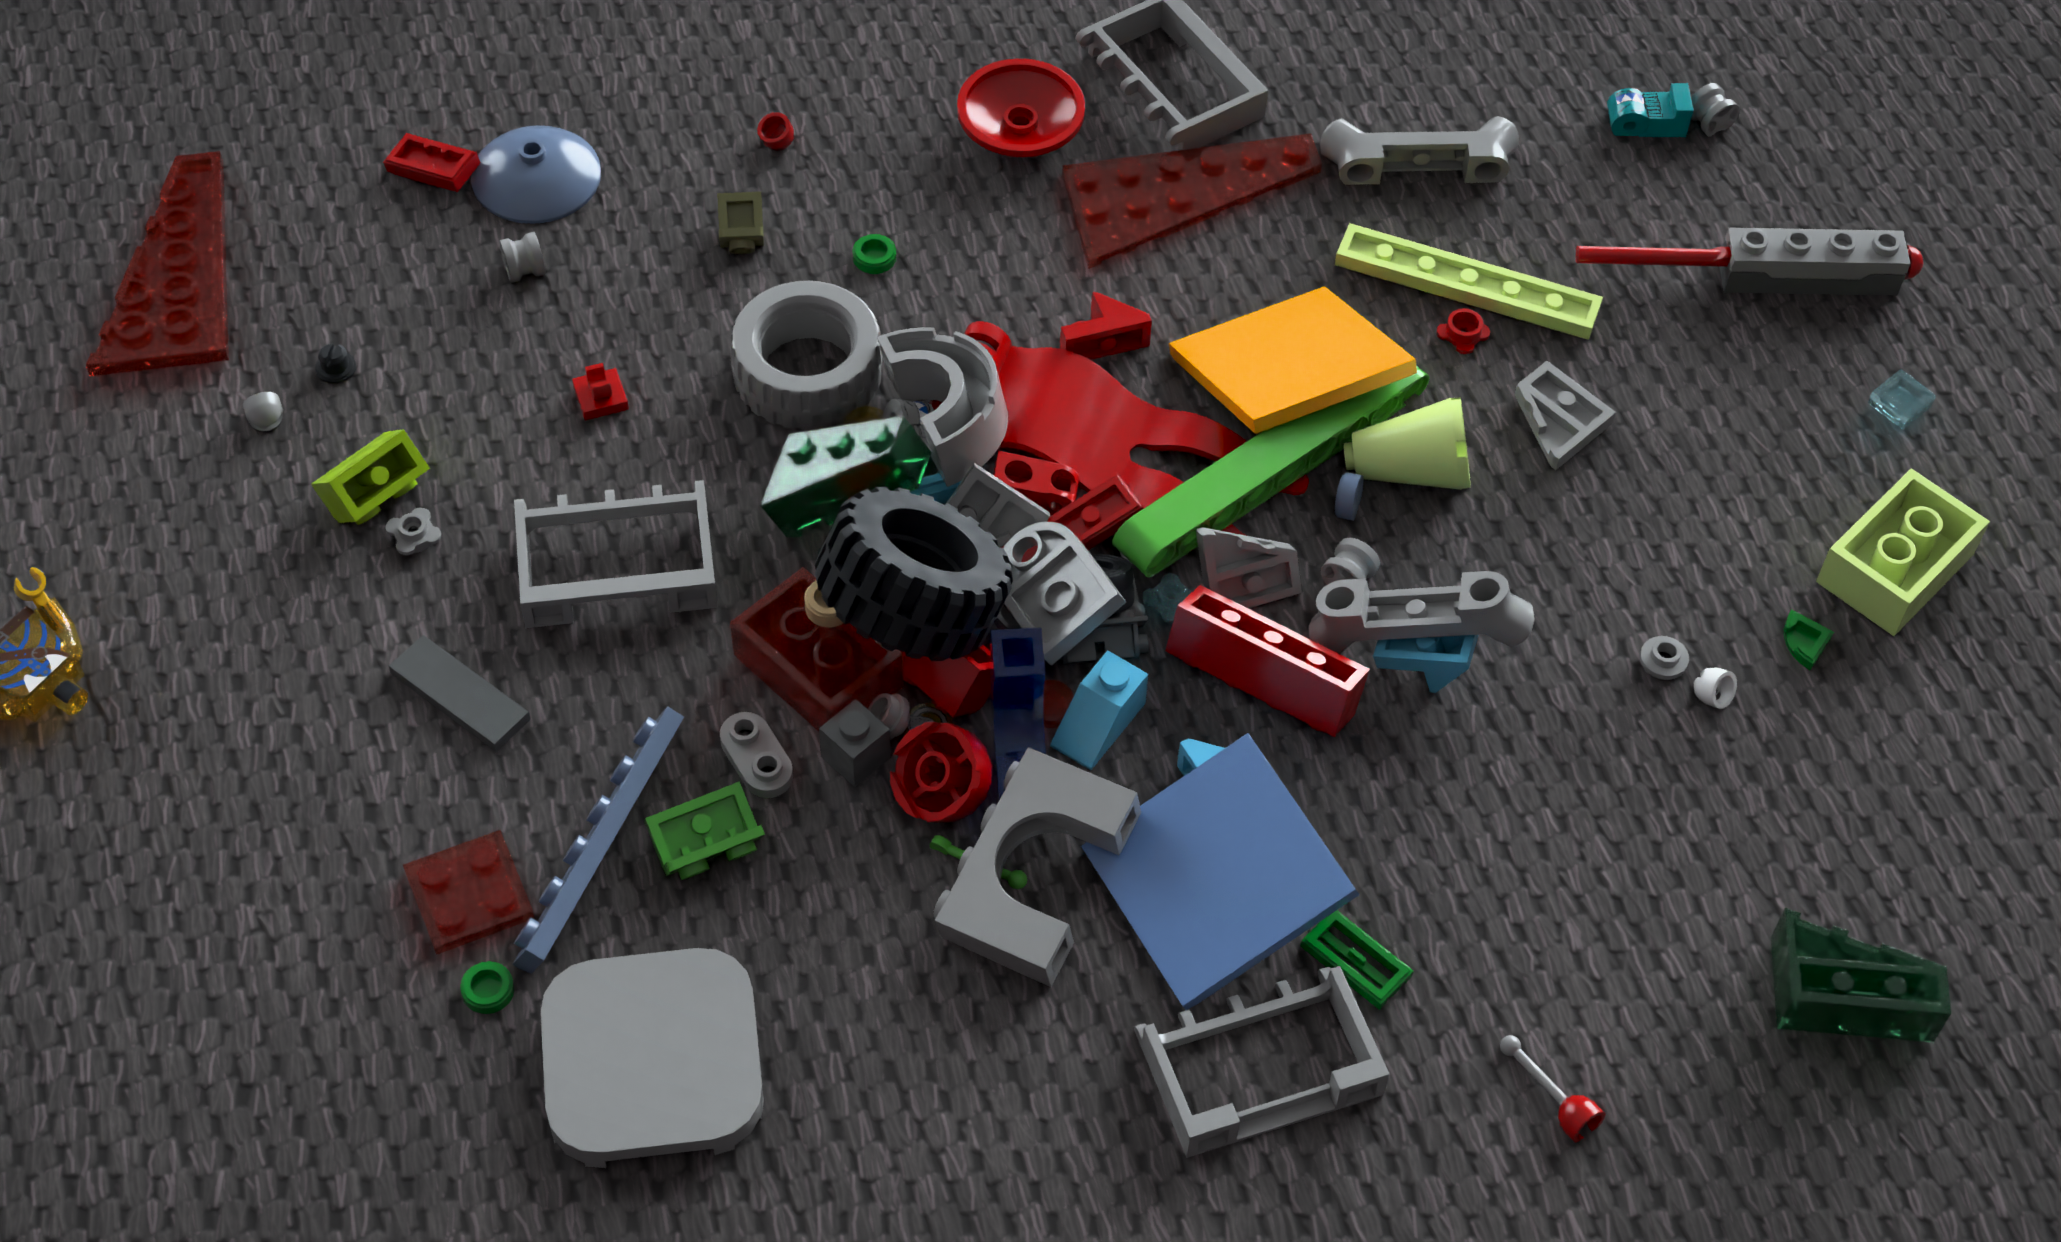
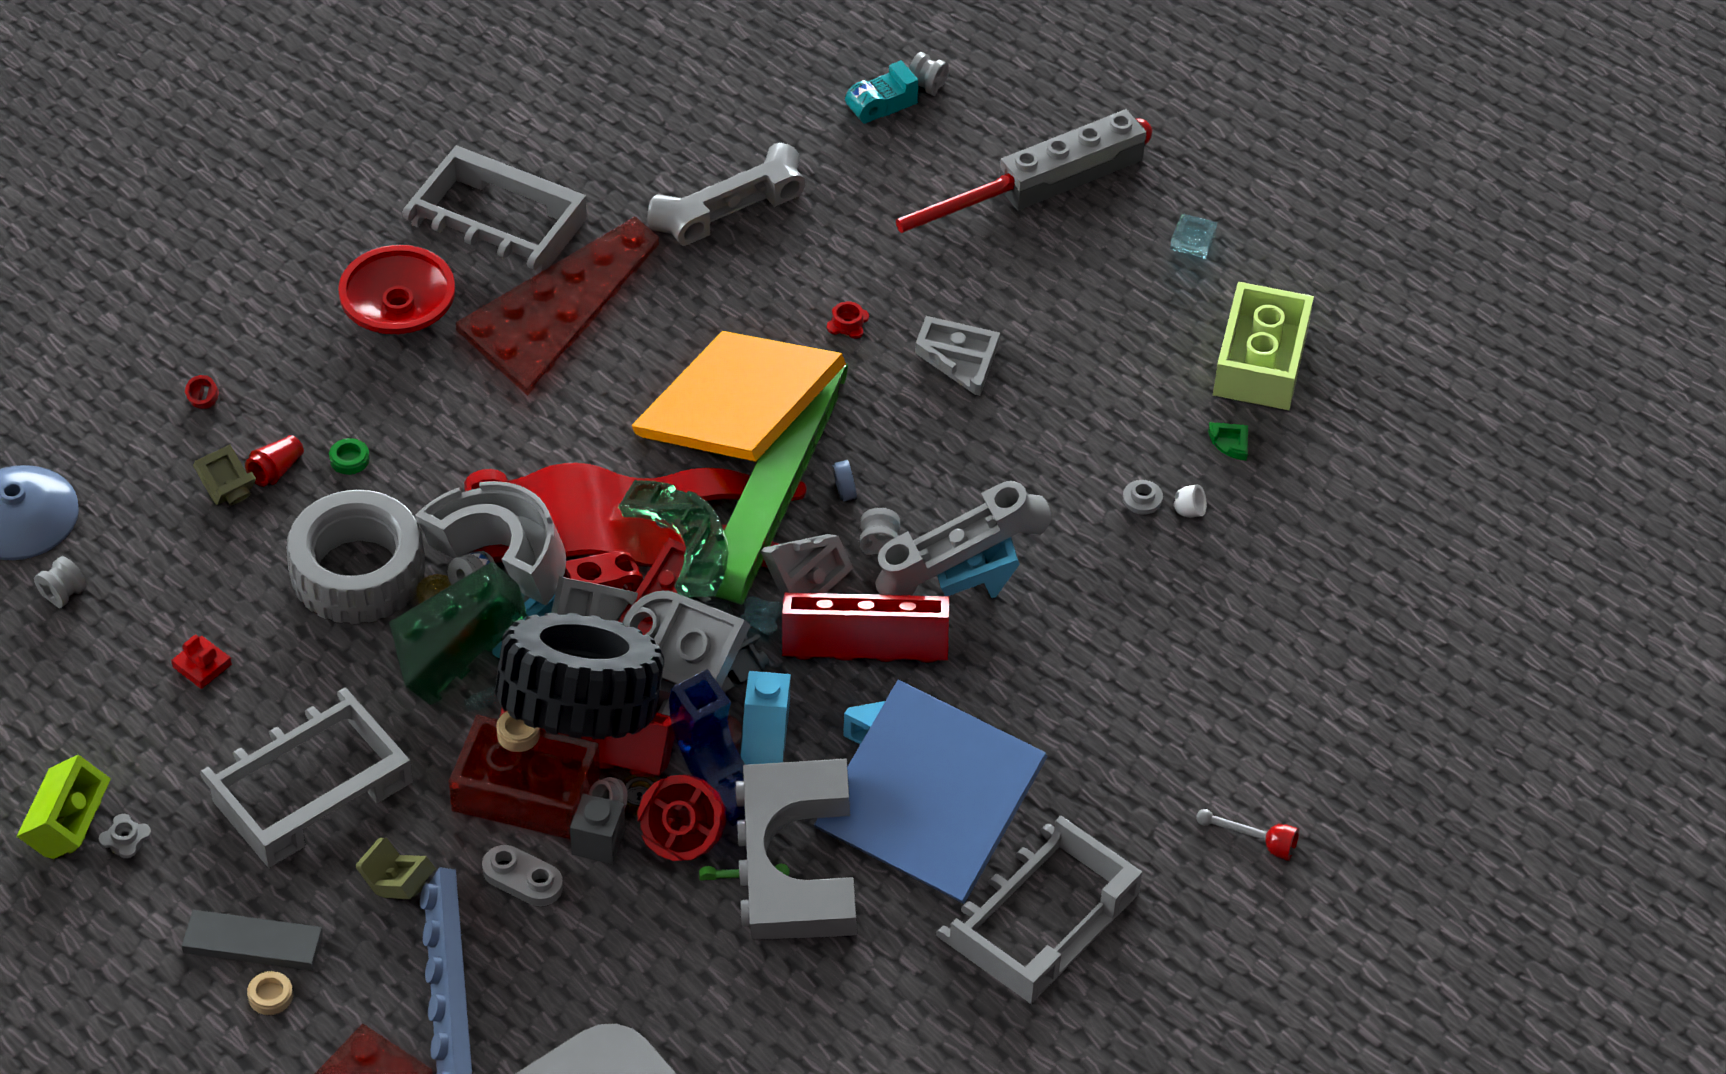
camera: 30 degrees left, 5 degrees down
(439, 754) = (270, 993): none -> tan tile
(630, 687) = (394, 874): none -> olive bracket
(702, 830) = (523, 947): bright green bracket -> none
(798, 226) = (274, 460): none -> red cone
(1111, 331) = (579, 433): red slope -> none
(1146, 478) = (694, 522): none -> clear green tile
(1372, 947) = (1044, 813): green tile -> none
(1414, 448) = (874, 421): yellowish green cone -> none
(1468, 281) = (827, 281): yellowish green plate -> none
(1853, 987) = (1410, 663): clear green wedge -> none

